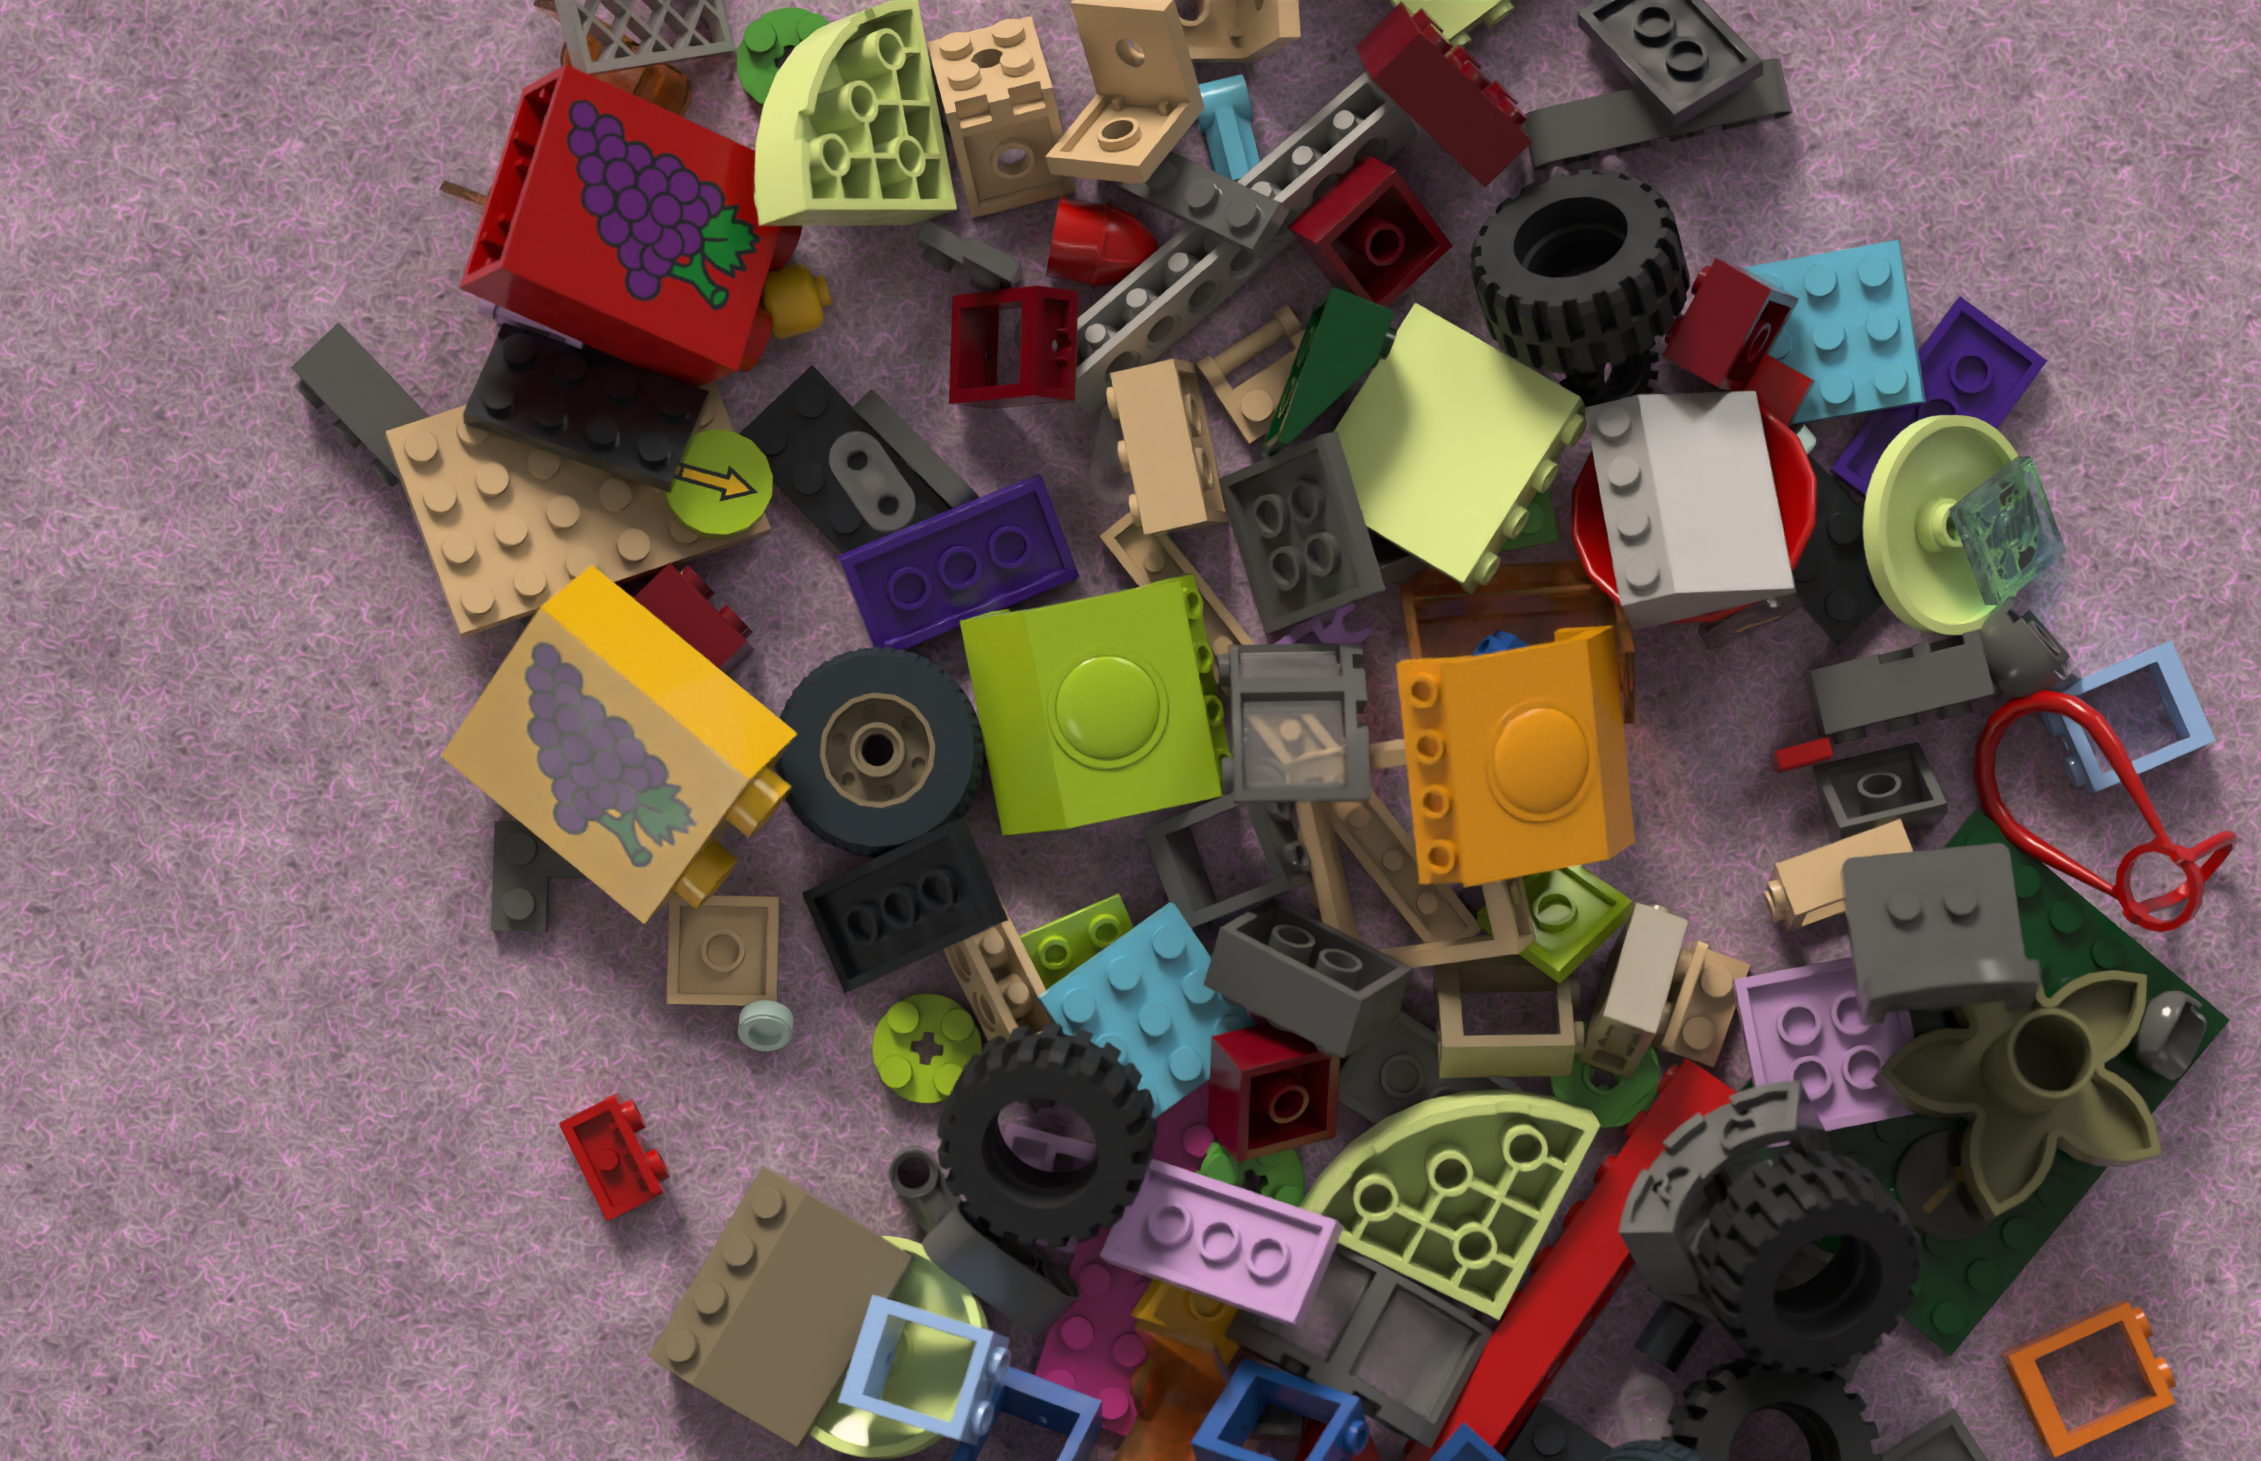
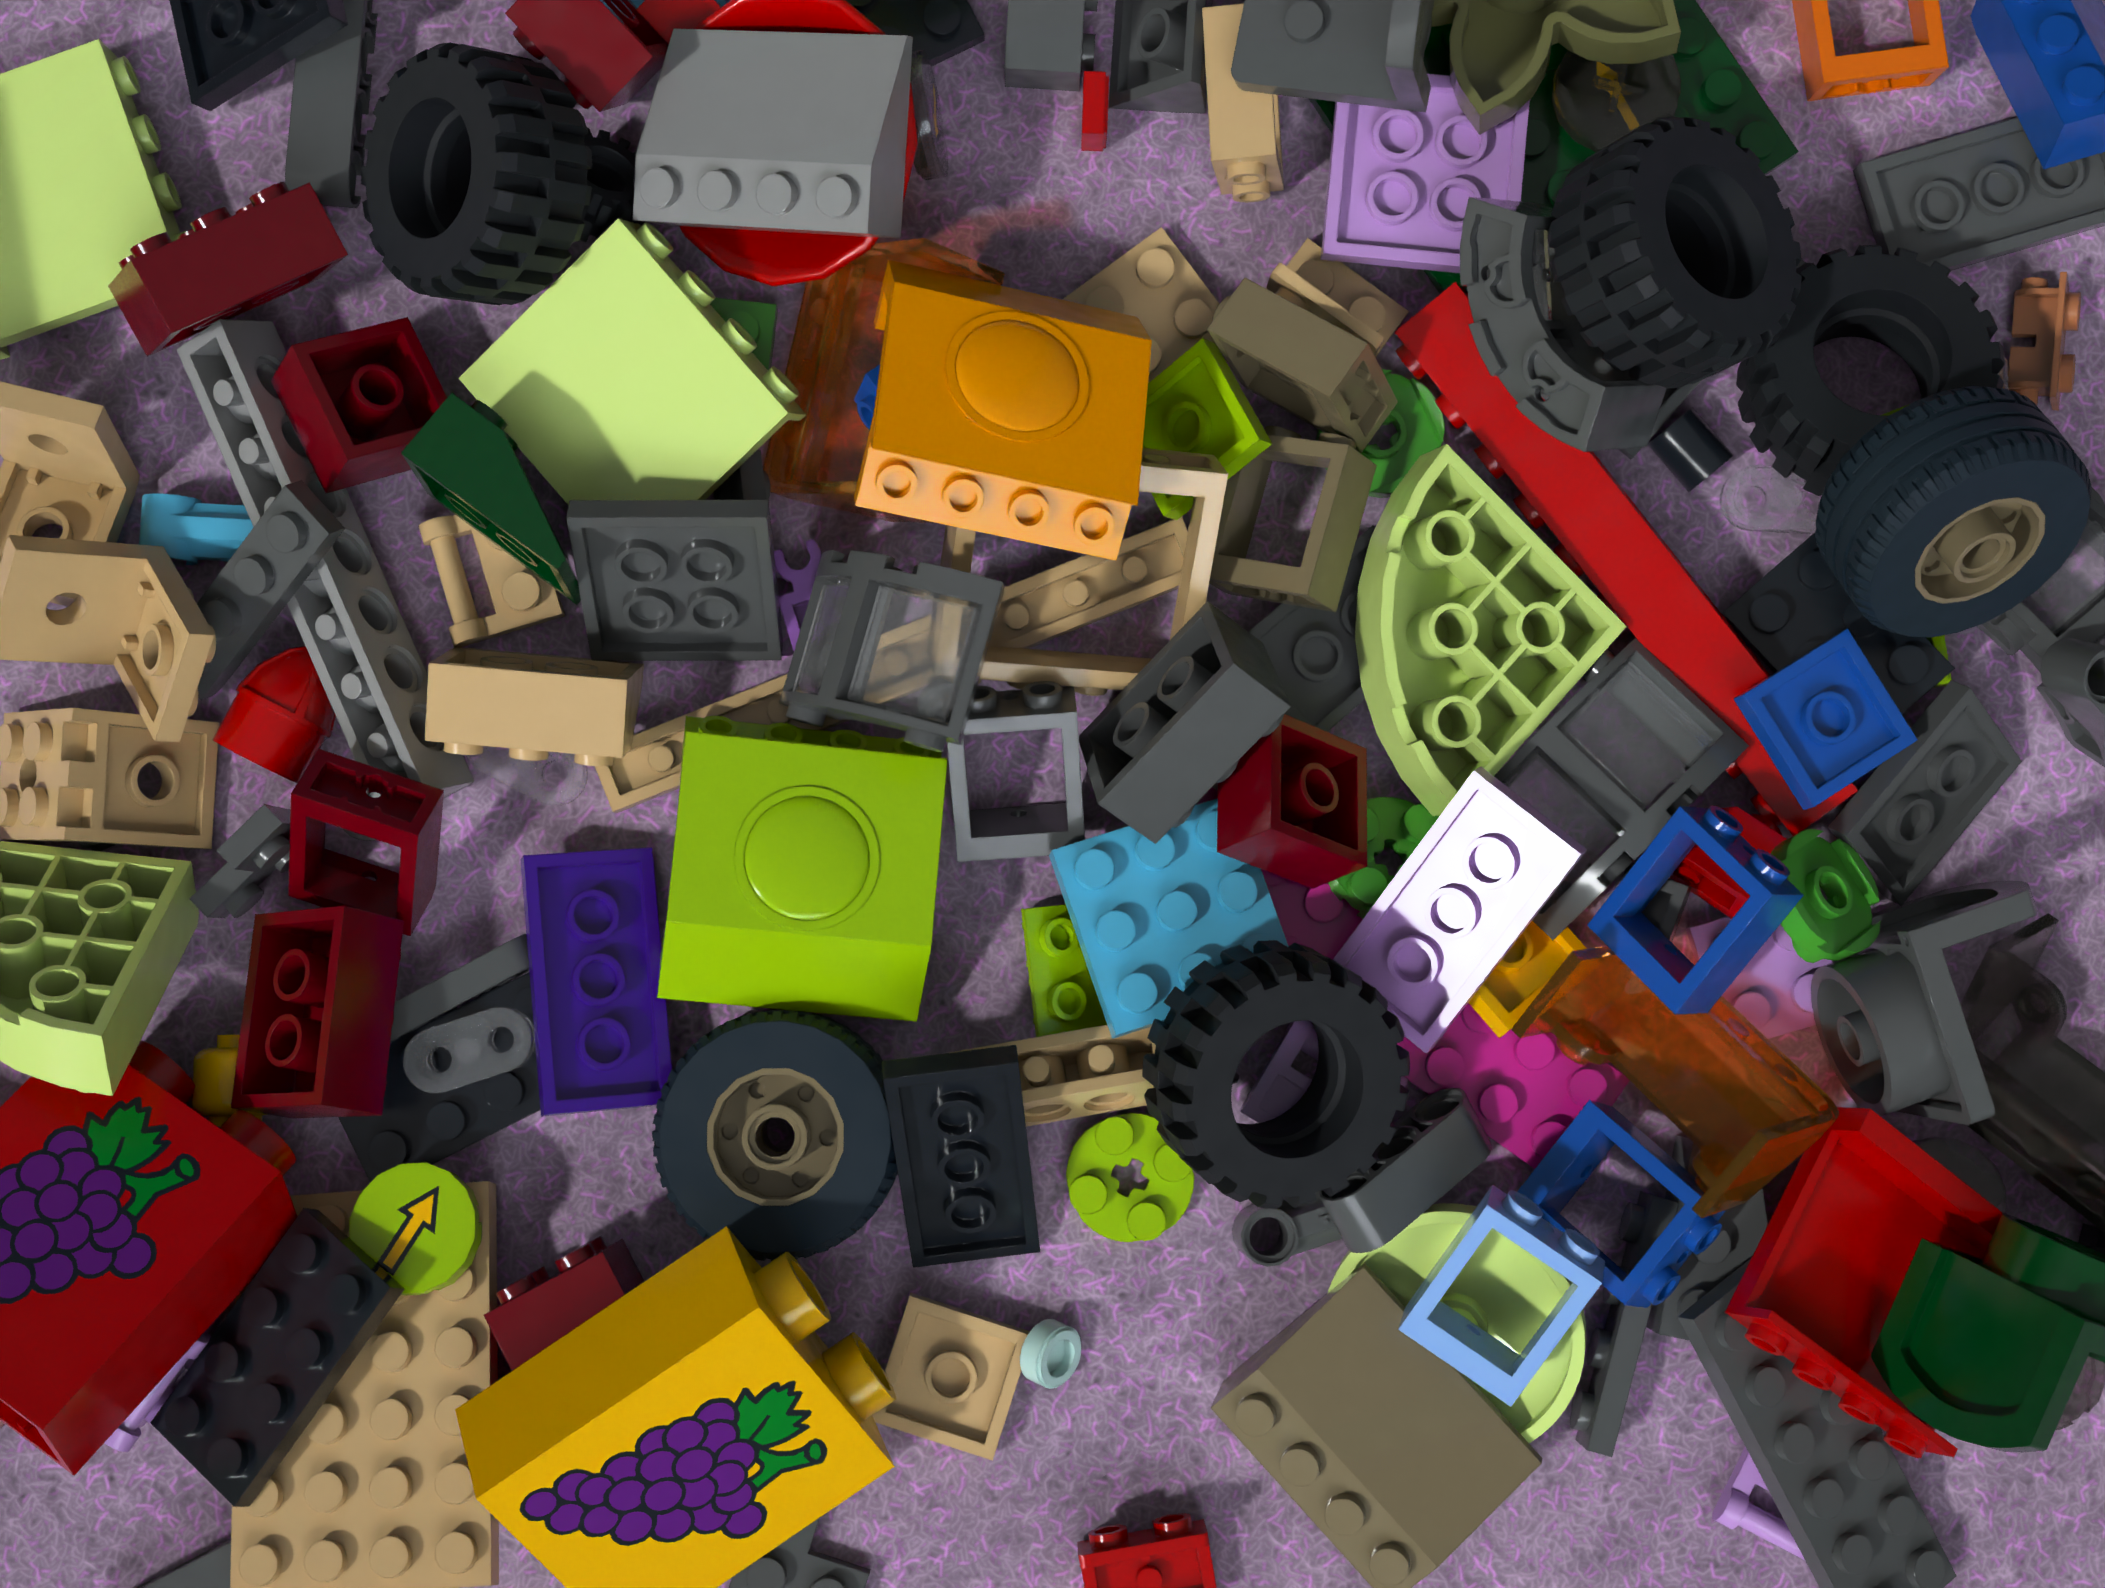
camera: 75 degrees left, 0 degrees up
(866, 353) = (318, 1013): none -> dark red brick
(1665, 854) = (1158, 289): none -> tan plate

